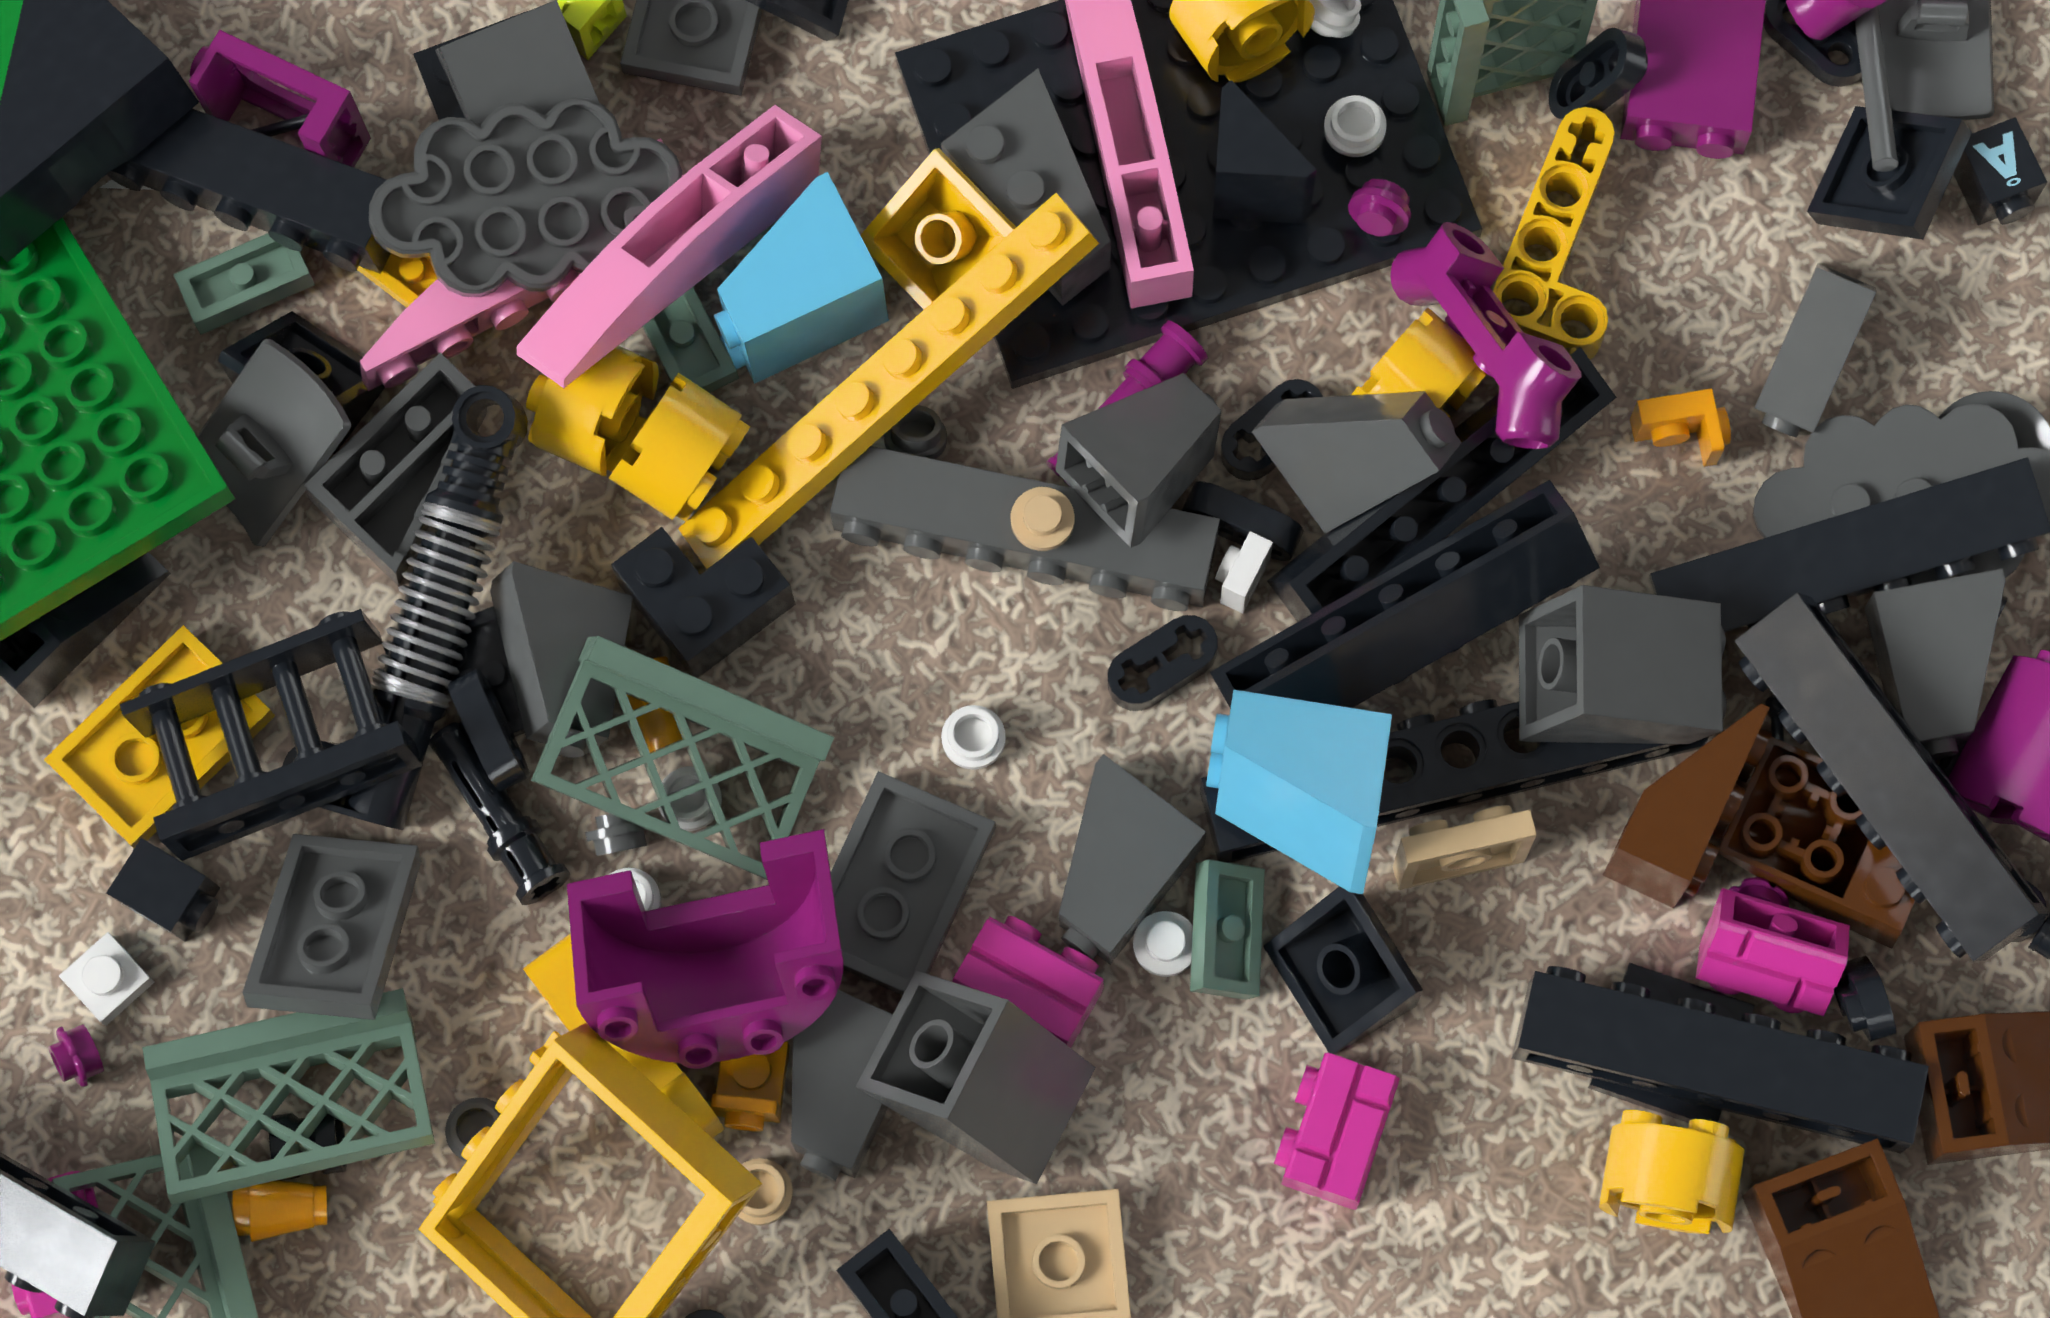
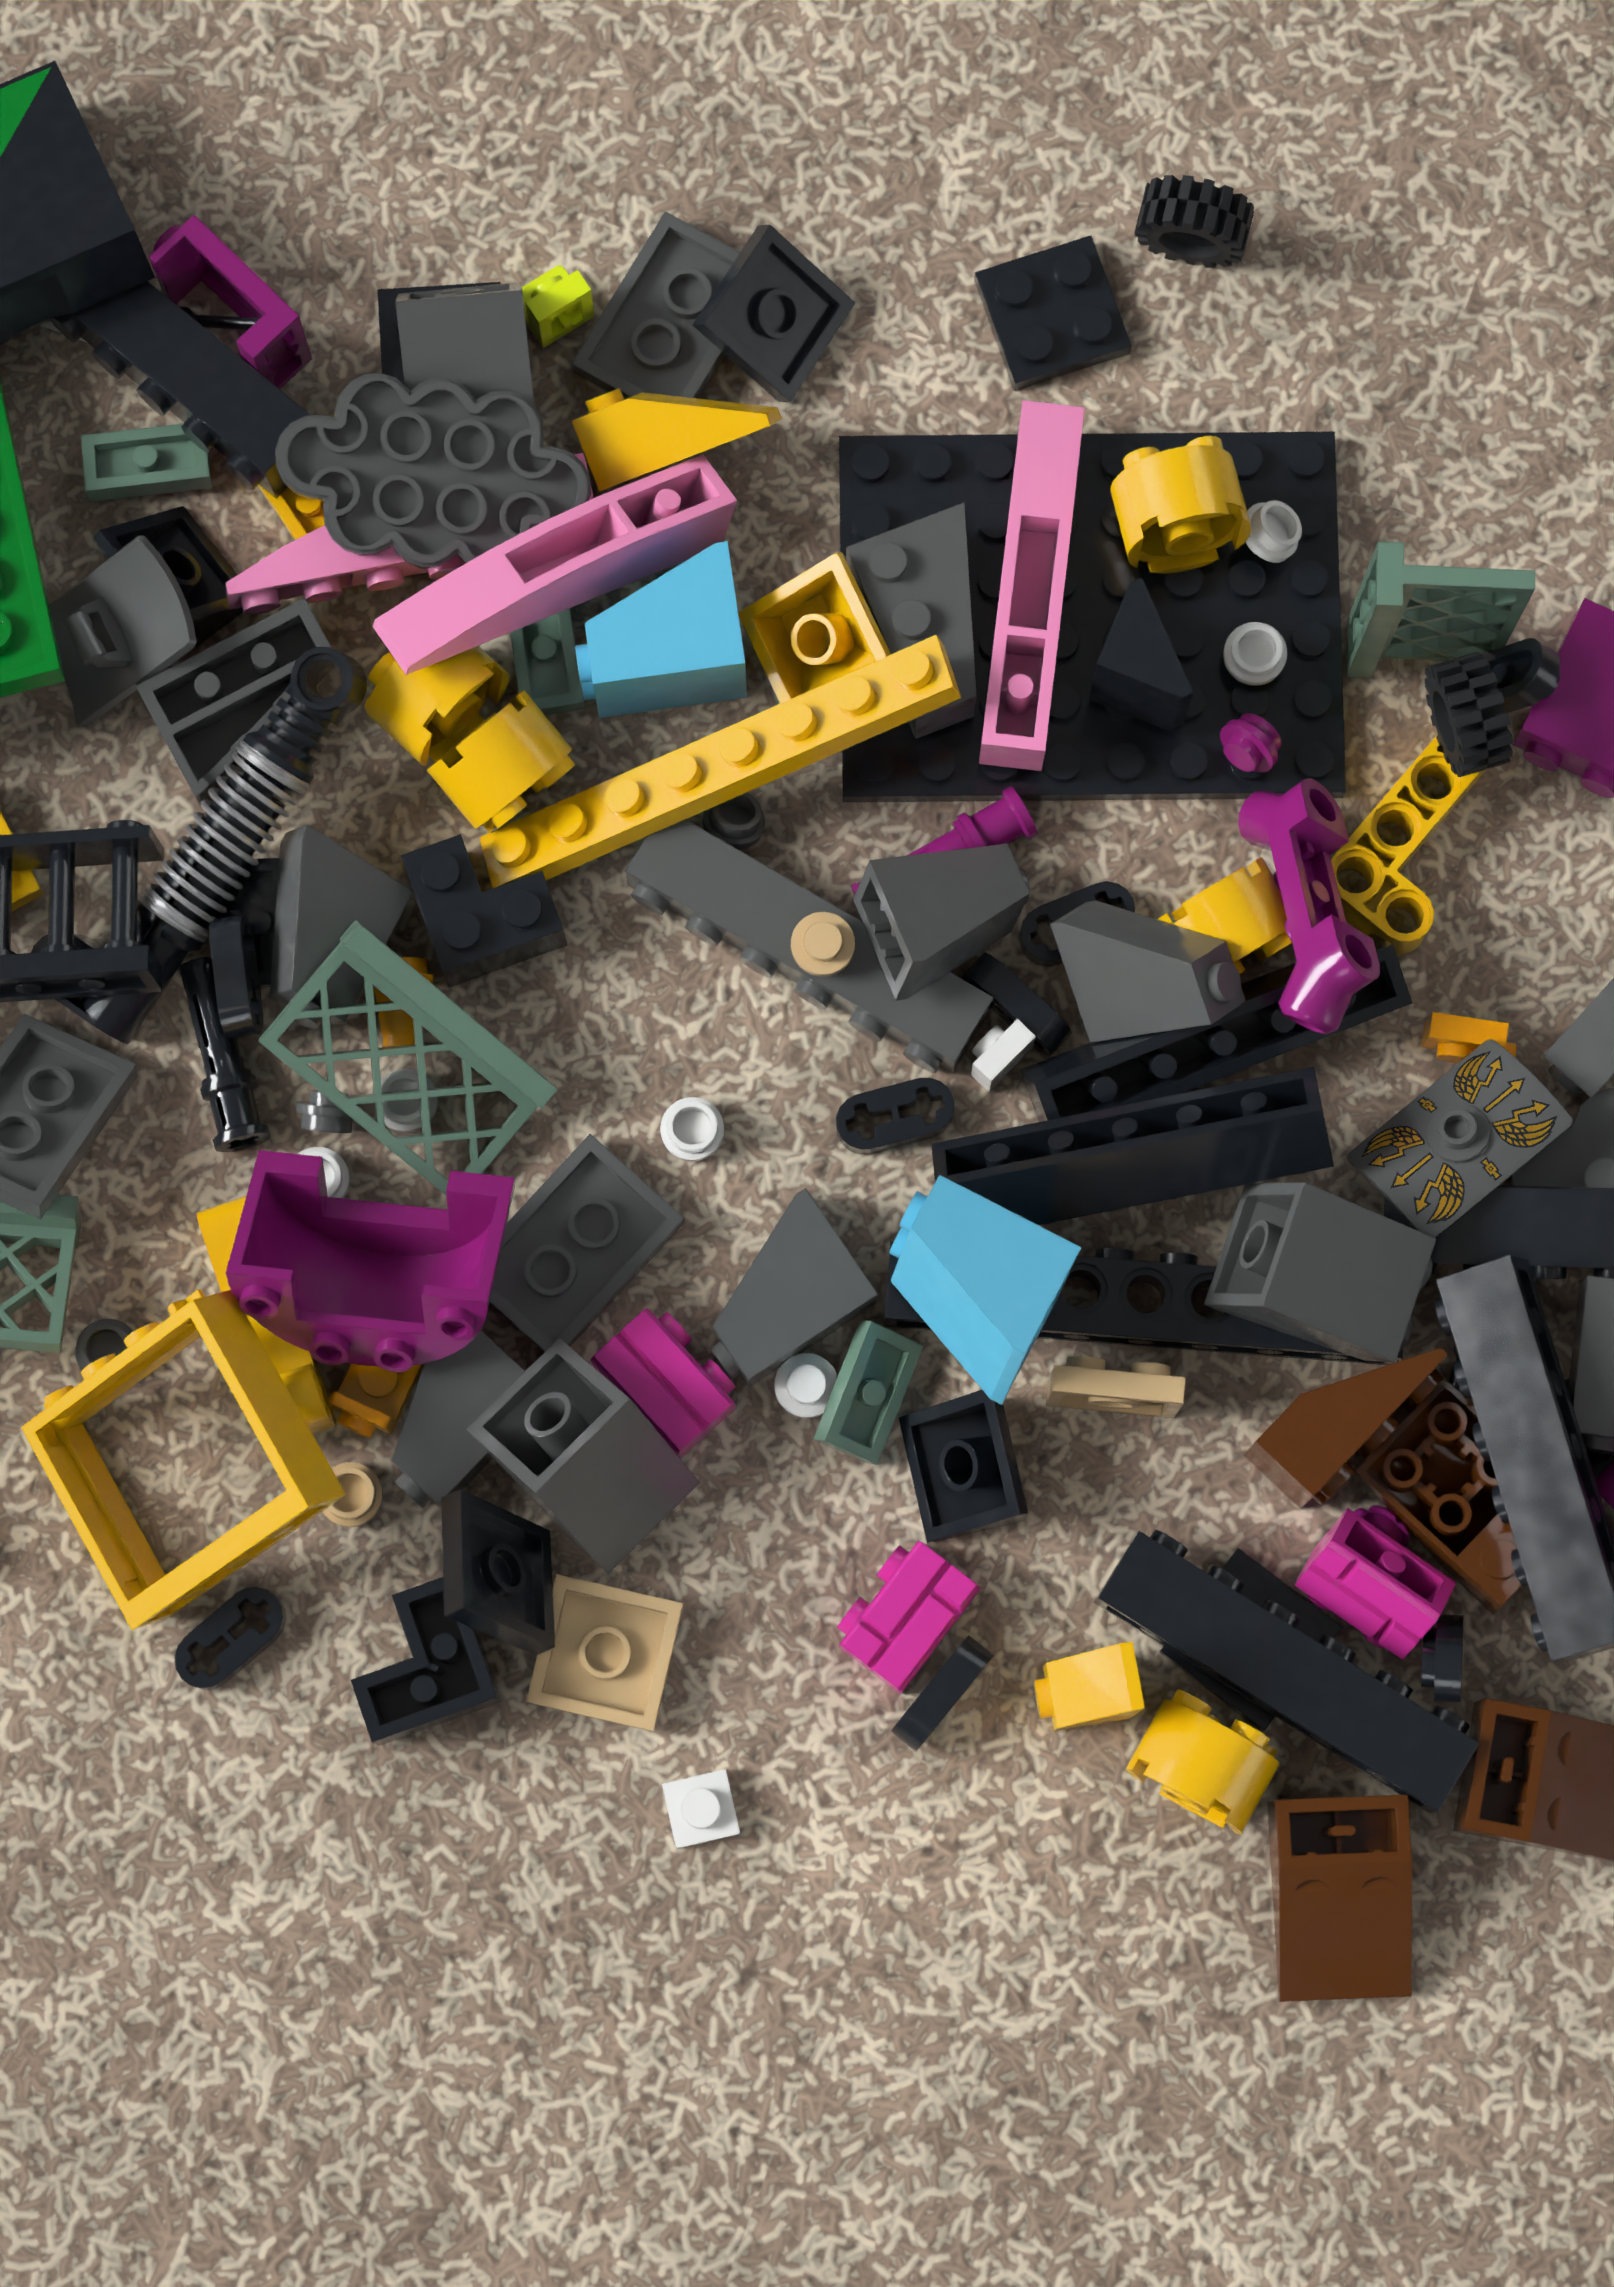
camera: 15 degrees right, 5 degrees up
(717, 100) = (656, 430): none -> yellow slope
(931, 1215) = (497, 1572): none -> black plate
(1396, 1193) = (942, 1693): none -> black beam
(1542, 1136) = (1090, 1688): none -> yellow slope
(1577, 113) = (1468, 714): none -> black tyre
(1707, 506) = (1460, 1138): none -> dark grey shield

